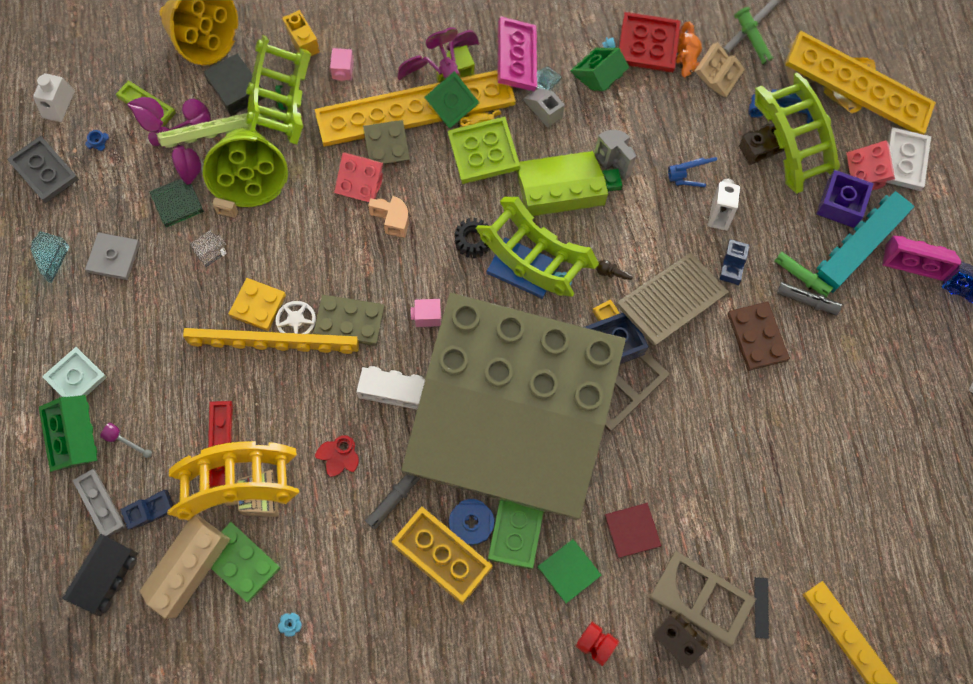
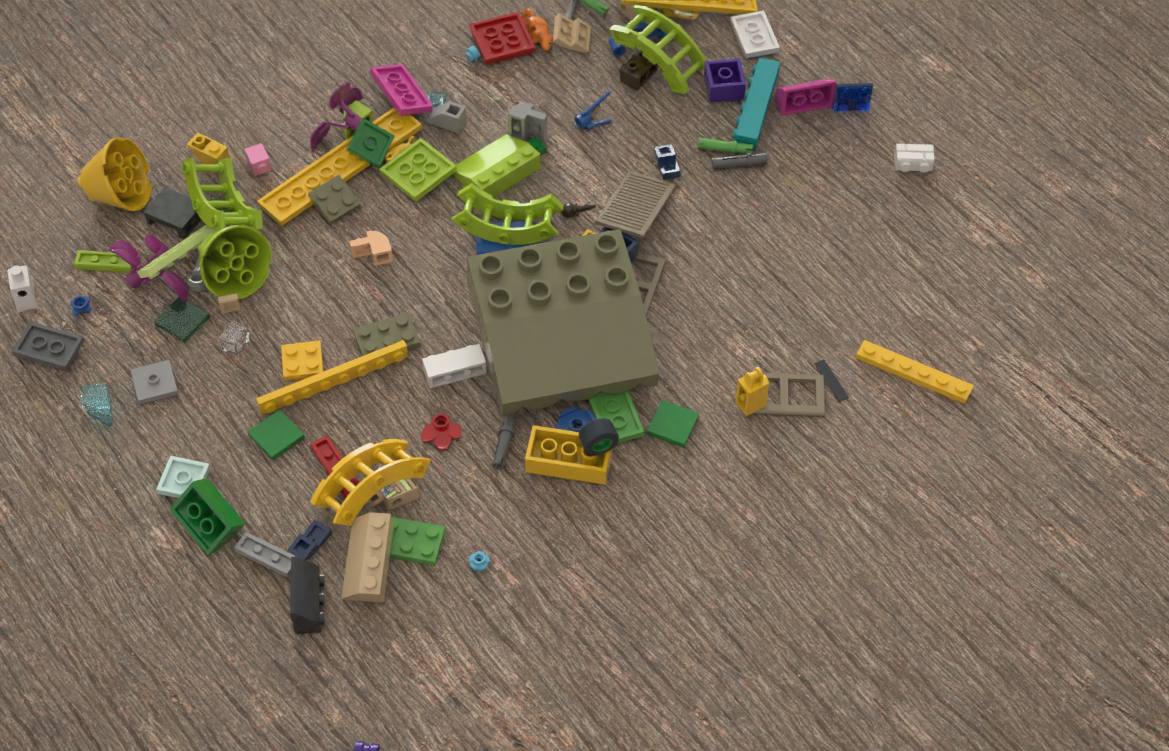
camera: 25 degrees left, 15 degrees down
(112, 433) = (243, 503): hinge -> none
(186, 373) = (276, 434): none -> green tile
(295, 319) = (340, 356): white wheel -> none
(359, 177) = (328, 232): coral plate -> none
(426, 313) = (447, 302): bright pink brick -> none
(463, 245) = (449, 243): black tyre -> none
(472, 565) = (598, 436): none -> black wheel
(597, 643) = (717, 452): red wheel -> none
(600, 68) = (475, 72): green slope -> none
(632, 530) = (703, 375): dark red tile -> none
(666, 589) = (752, 391): none -> yellow brick
(680, 639) = (783, 426): dark brown brick -> none
(726, 196) = (635, 117): white torso -> none
(758, 336) = (717, 203): reddish brown plate -> none
(872, 164) = (731, 46): coral plate -> none

